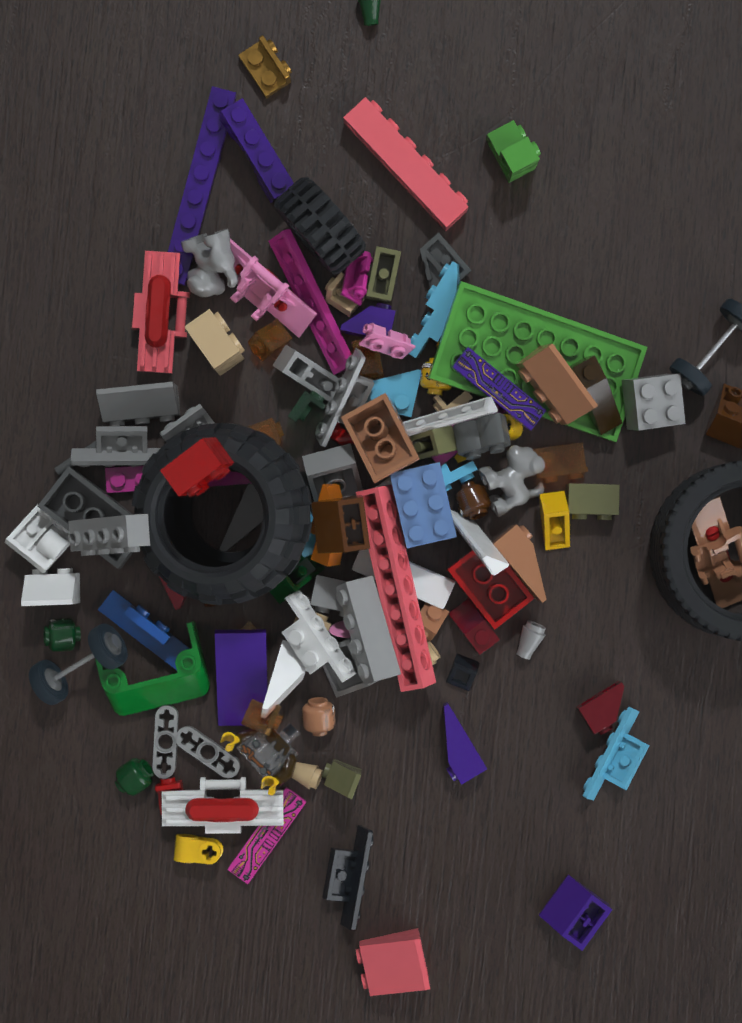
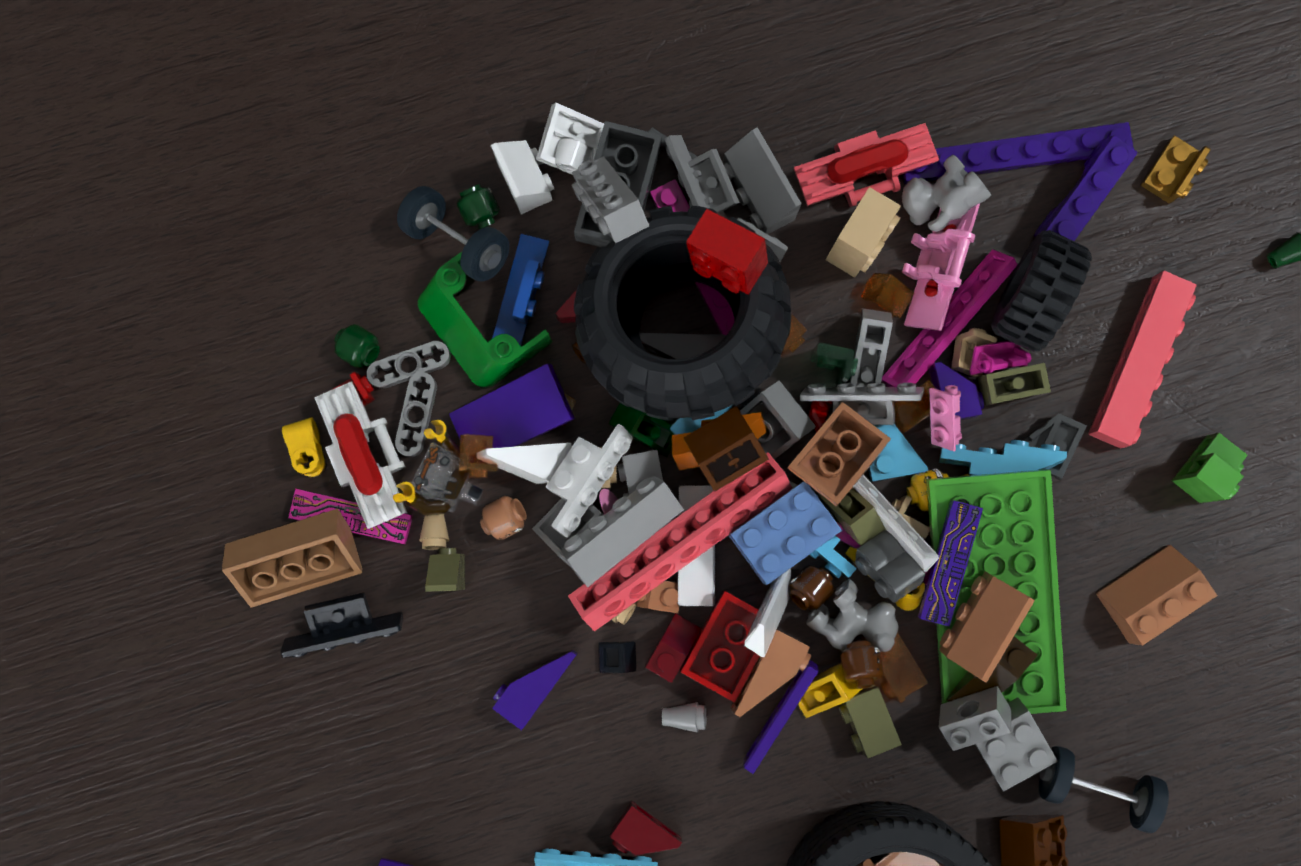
camera: 70 degrees right, 5 degrees down
(281, 893) = (292, 558): none -> medium nougat slope
(393, 963) = (261, 717): coral slope -> none
(546, 489) = (861, 664): none -> reddish brown head
(559, 567) = (779, 717): none -> dark purple tile
(589, 238) = (1155, 595): none -> nougat slope
(622, 421) = (975, 718): none -> light grey brick

